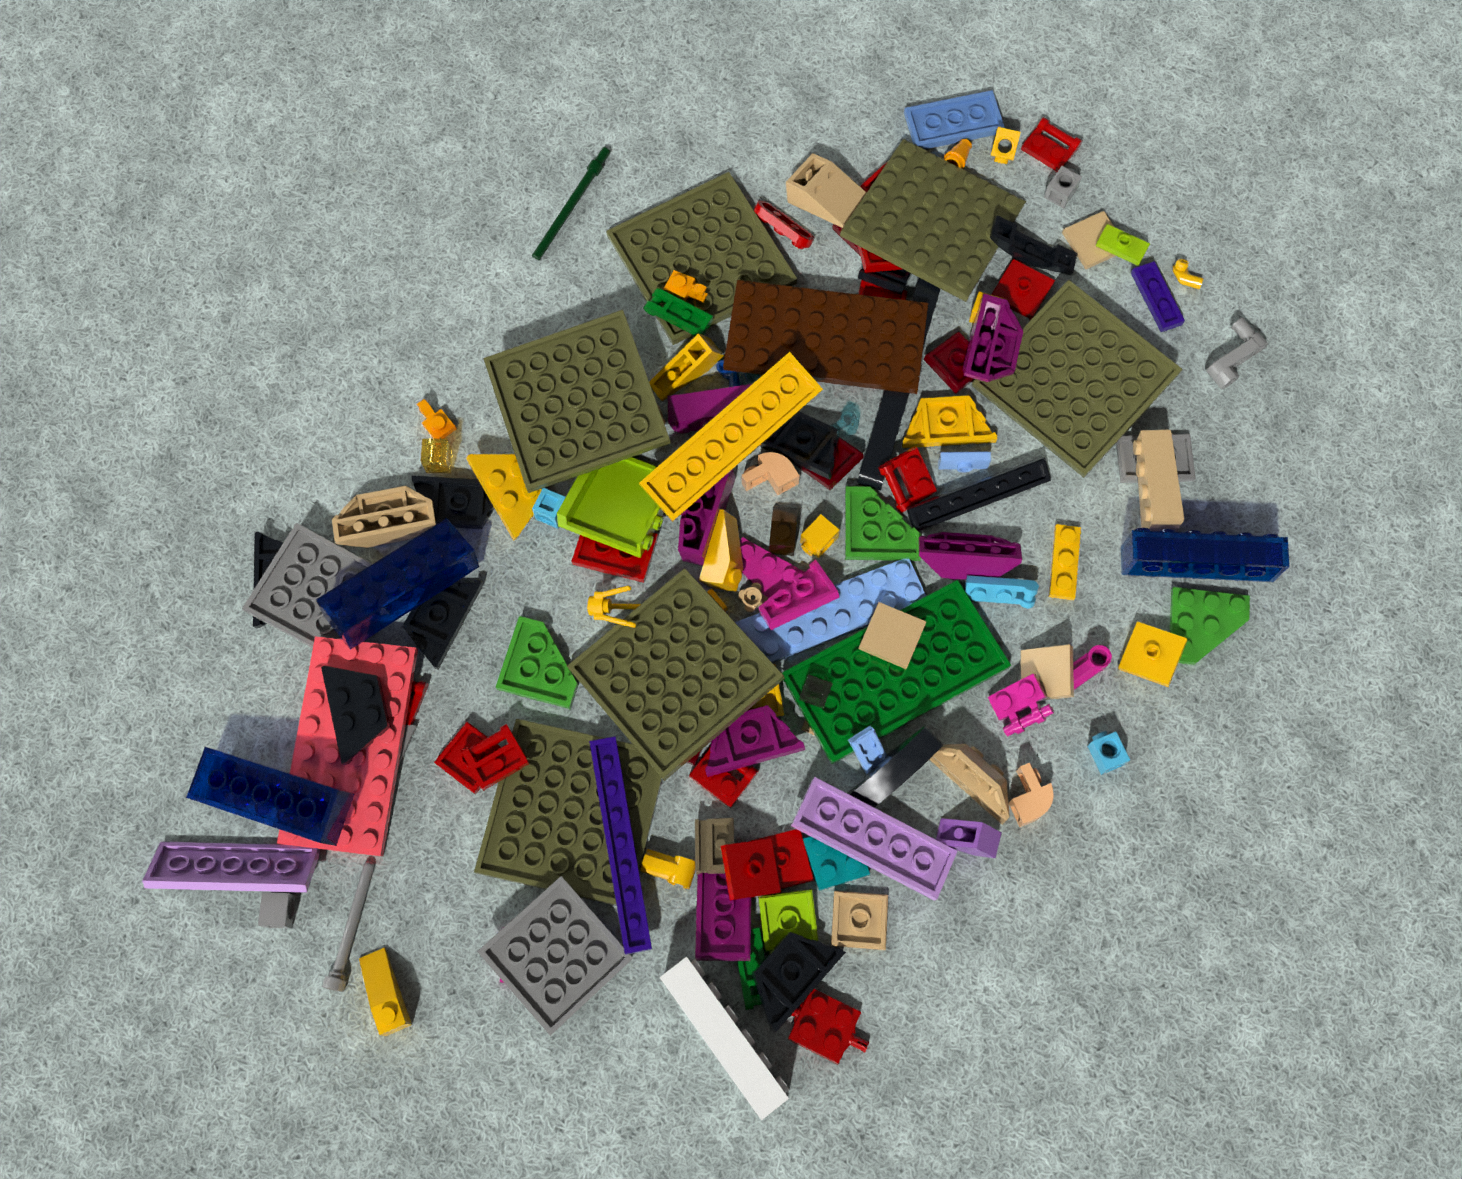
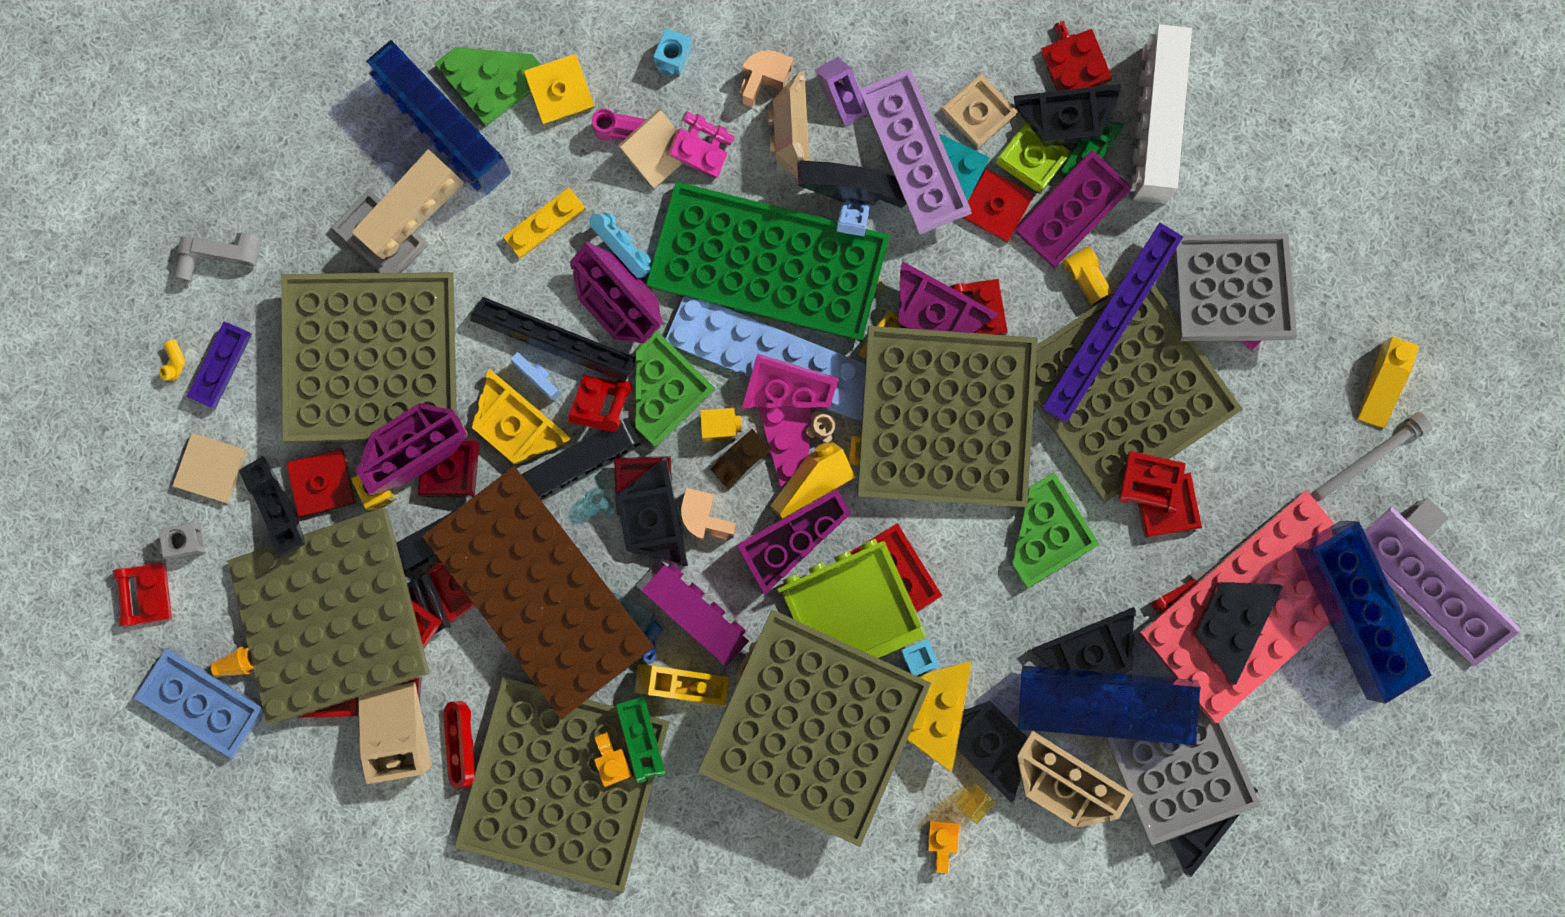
camera: 140 degrees left, 10 degrees up
(600, 606) = (952, 533): yellow plant -> none
(709, 838) = (1040, 256): dark tan plate -> none
(730, 436) = (716, 563): yellow plate -> none
(750, 869) = (1031, 211): red plate -> none
(815, 691) = (850, 298): clear smoke tile -> none
(892, 635) = (745, 286): tan tile -> none
(1009, 135) = (180, 640): yellow brick -> none
(1122, 244) = (195, 436): lime plate -> none

